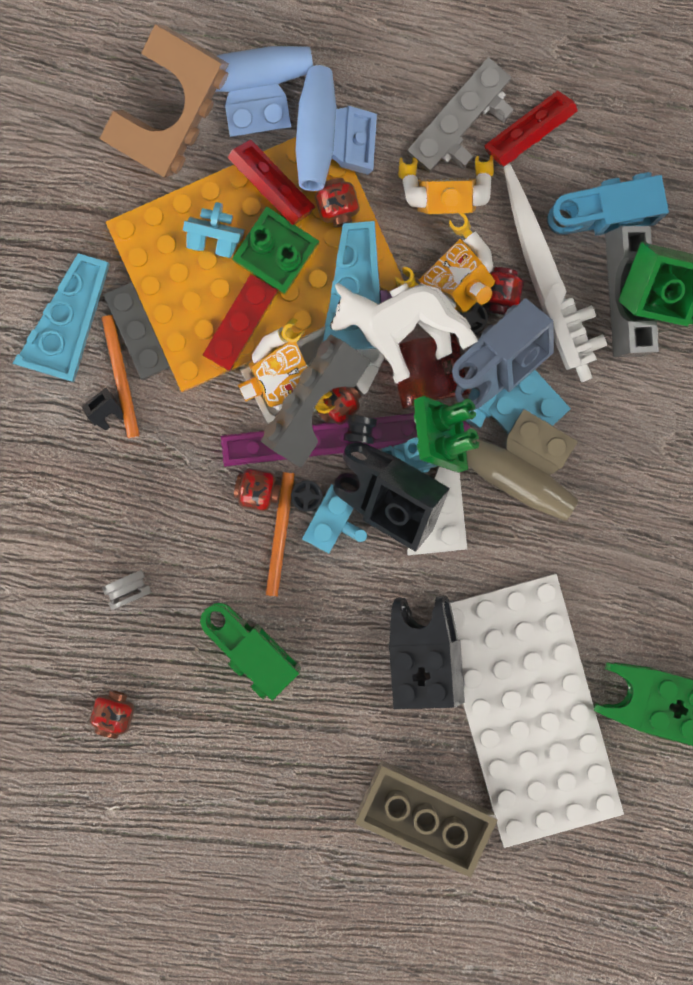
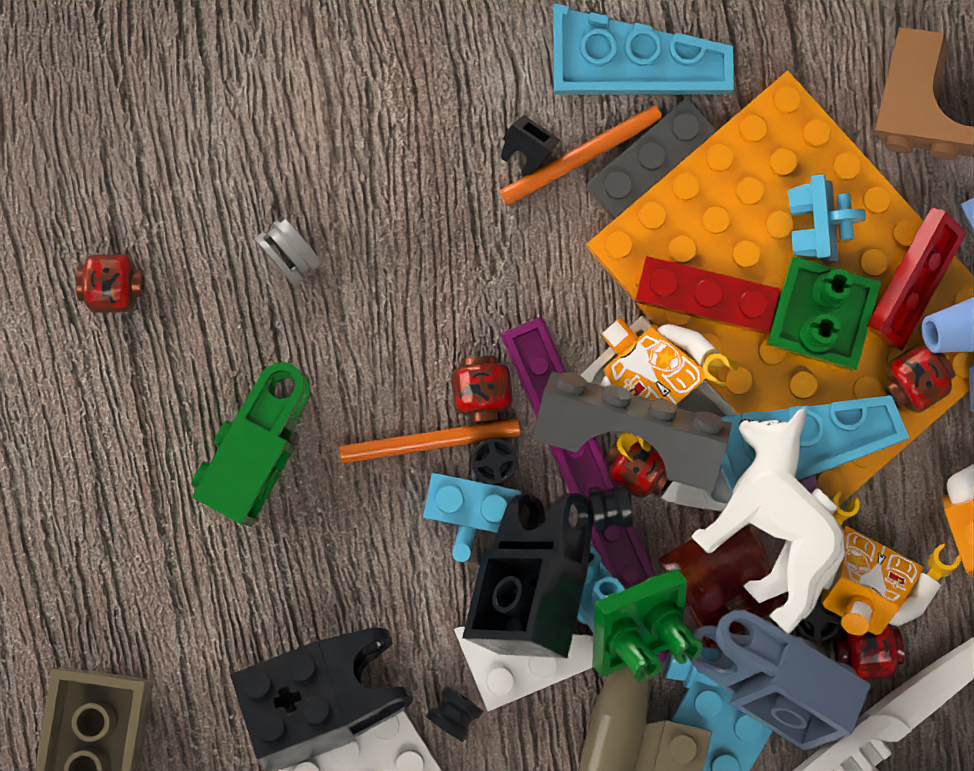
camera: 75 degrees right, 5 degrees down
(462, 571) = (454, 713): none -> black wheel

